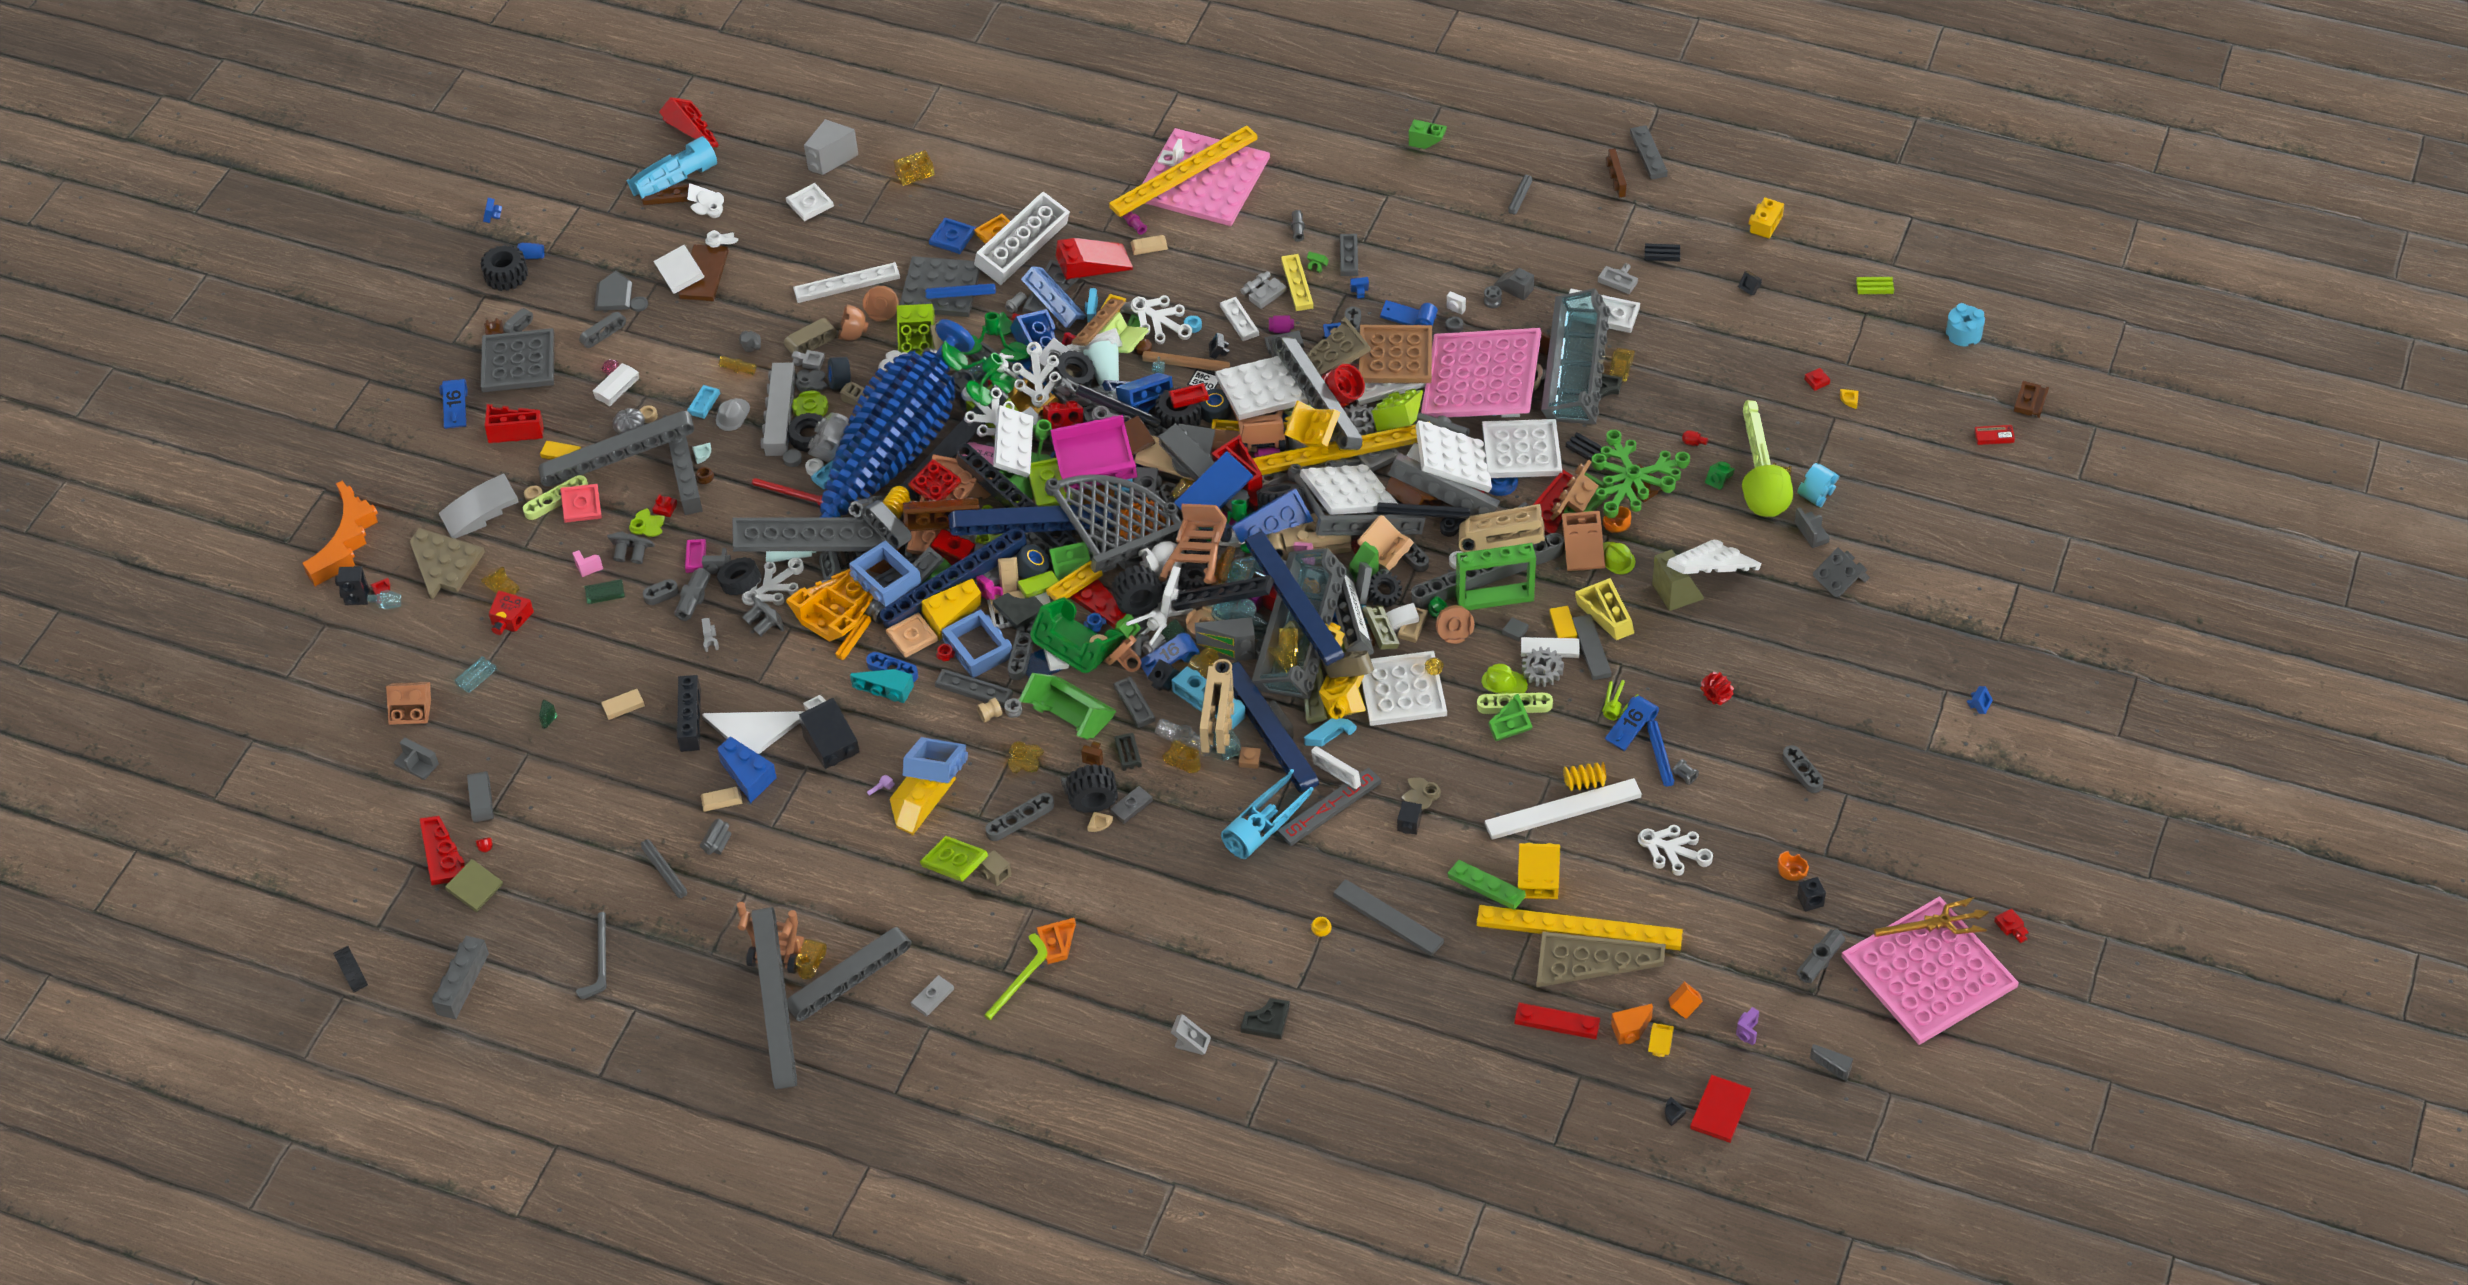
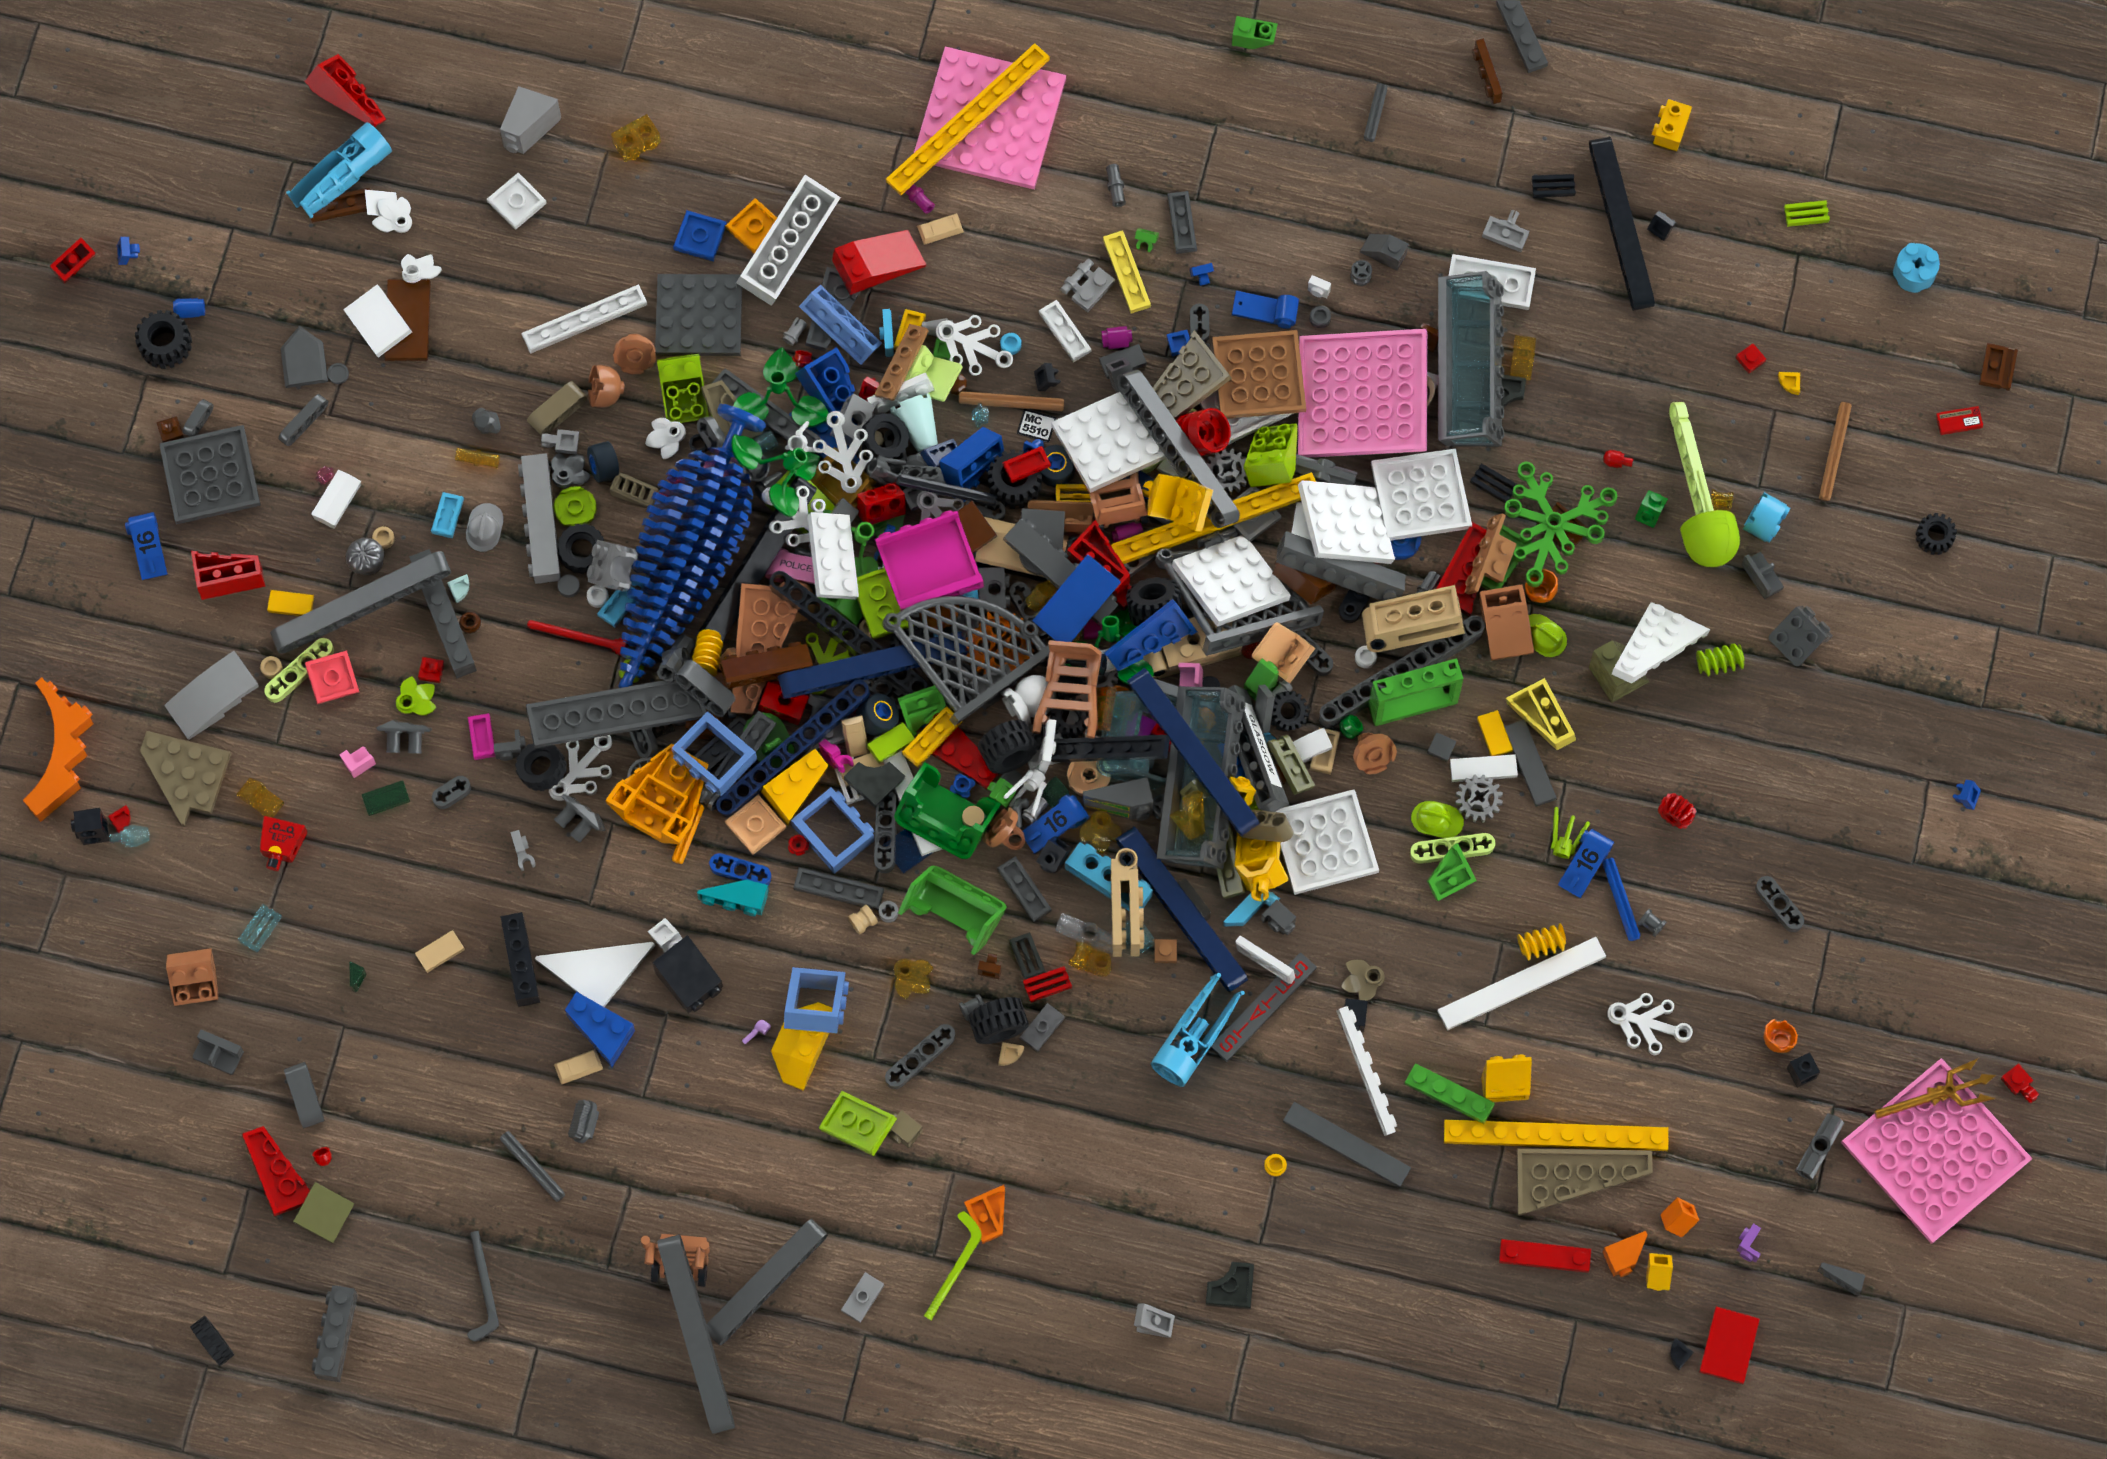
camera: 10 degrees left, 20 degrees up
(446, 211) = (72, 260): none -> red brick
(692, 594) = (490, 793): dark grey piece -> none
(810, 958) = (720, 1262): clear yellow piece -> none
(934, 481) = (750, 622): red tile -> none
(958, 291) = (727, 326): blue axle -> none
(1141, 770) = (1062, 970): none -> red tile
(1177, 154) = (957, 96): white bracket -> none
(1353, 739) = (1279, 918): none -> dark grey brick
(1415, 863) = (1369, 1078): none -> white plate
(1423, 510) = (1321, 604): black axle -> none
(1434, 666) = (1358, 813): clear yellow plate -> none
(1716, 280) = (1621, 223): none -> black beam
(1767, 583) = (1720, 659): none -> lime piece
(1883, 448) = (1835, 451): none -> medium nougat axle
(1967, 502) = (1932, 545): none -> black tyre

